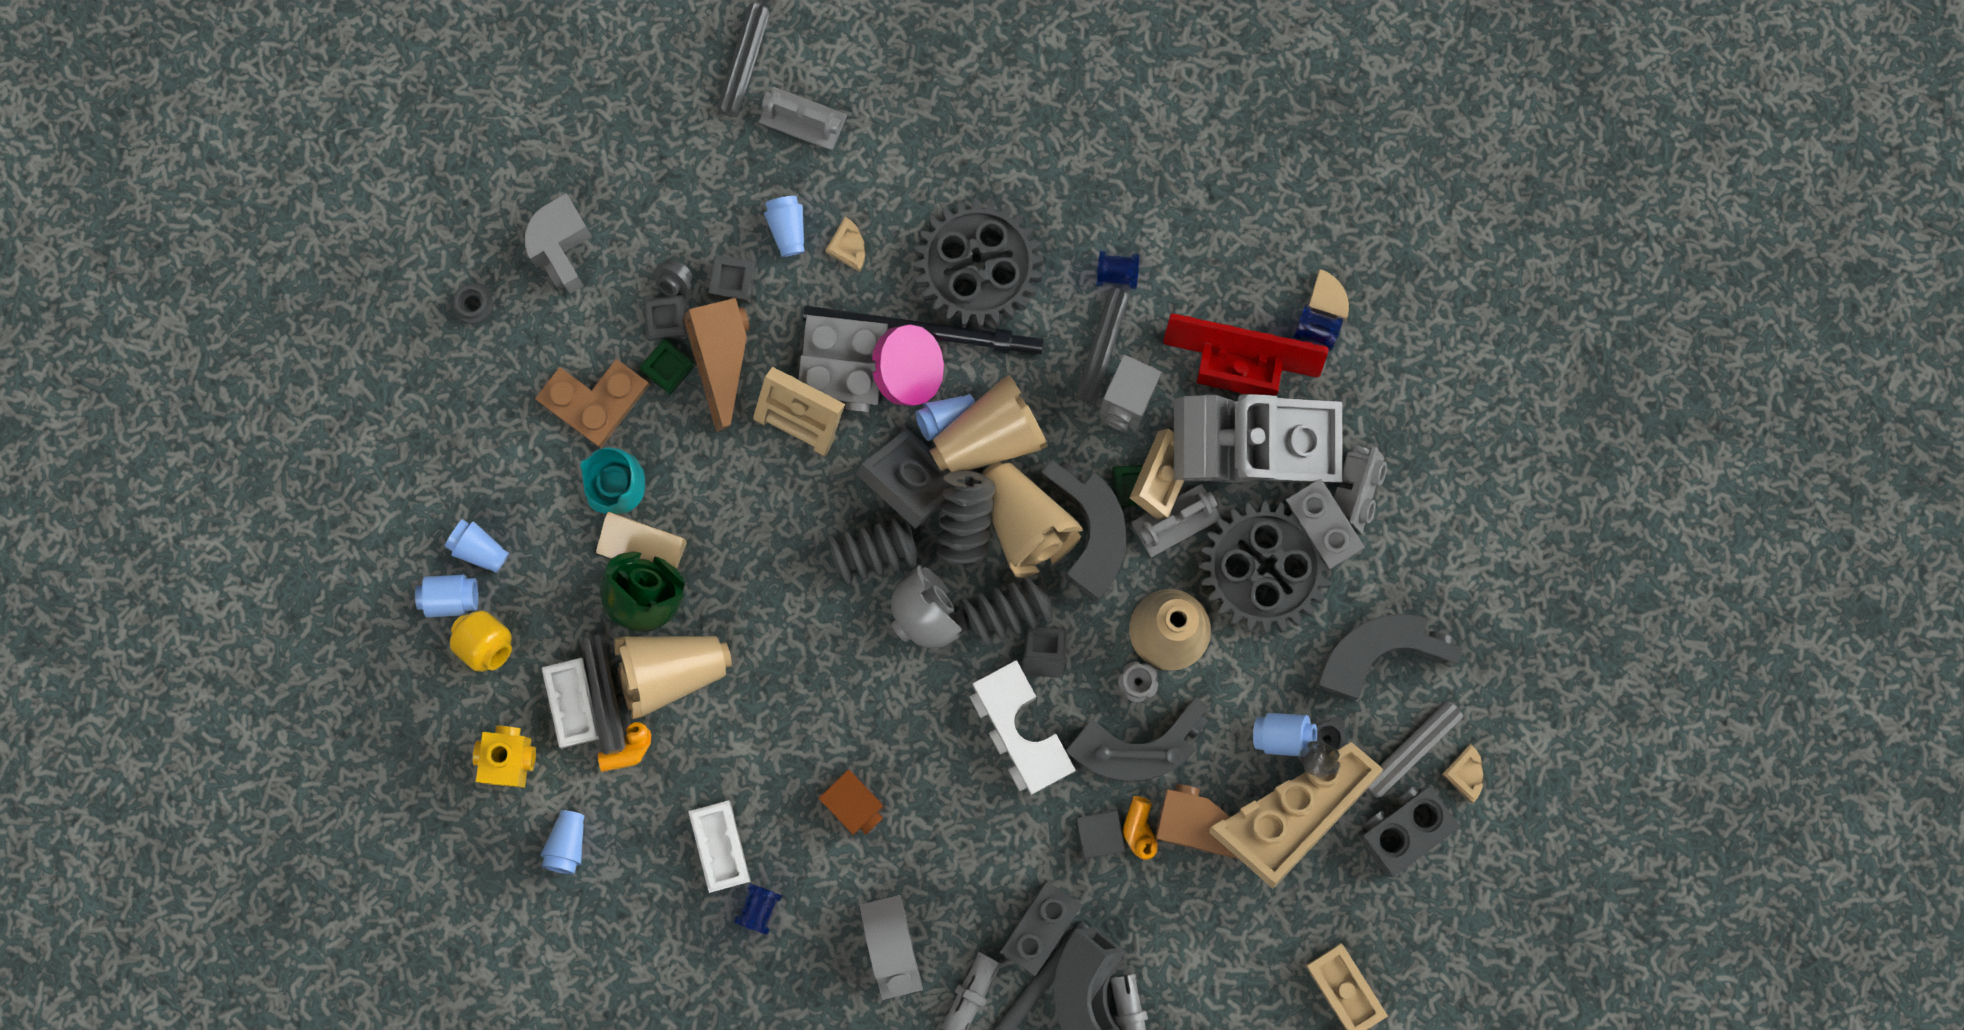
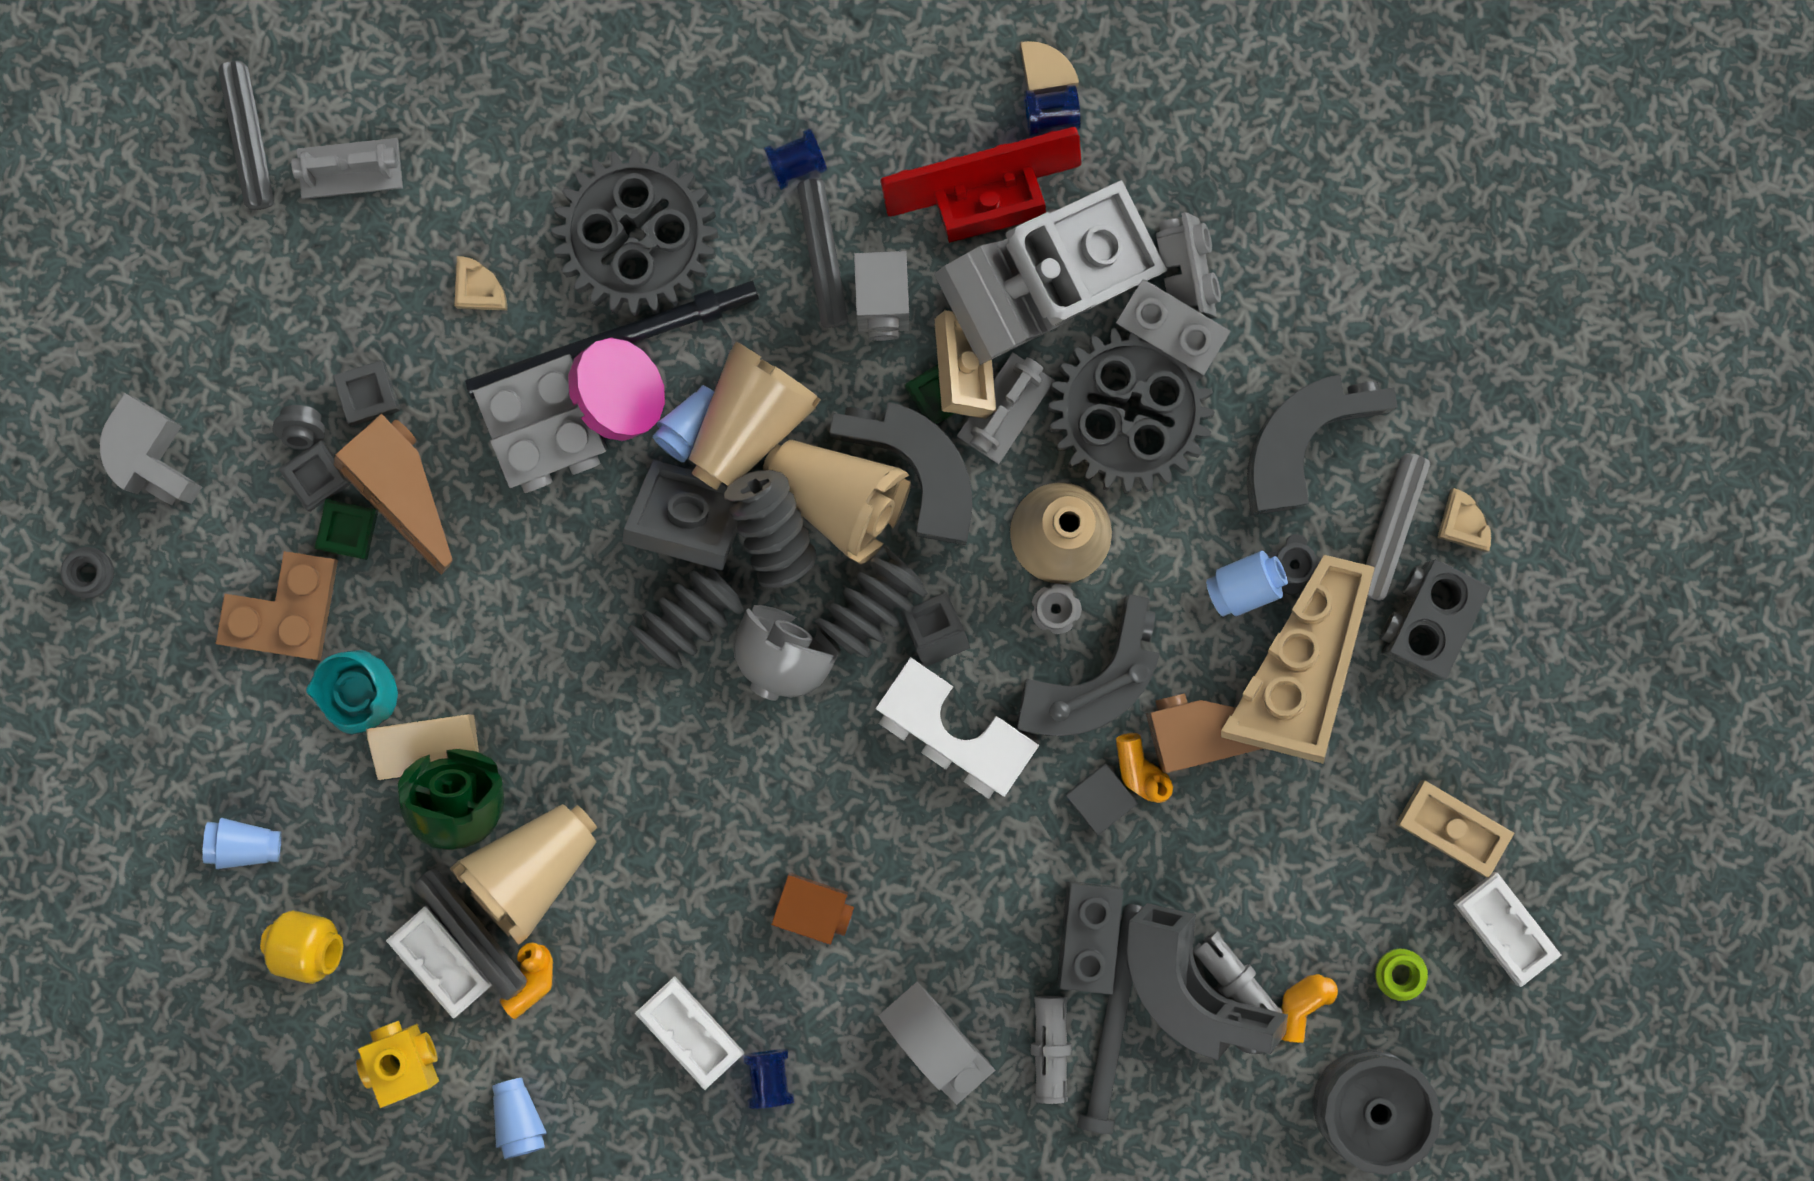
camera: 30 degrees left, 5 degrees up
(447, 595) = (236, 916): light blue brick -> none
(786, 224) = (395, 299): light blue cone -> none
(799, 410) = (520, 503): tan plate -> none
(1320, 759) = (1301, 593): clear smoke plate -> none

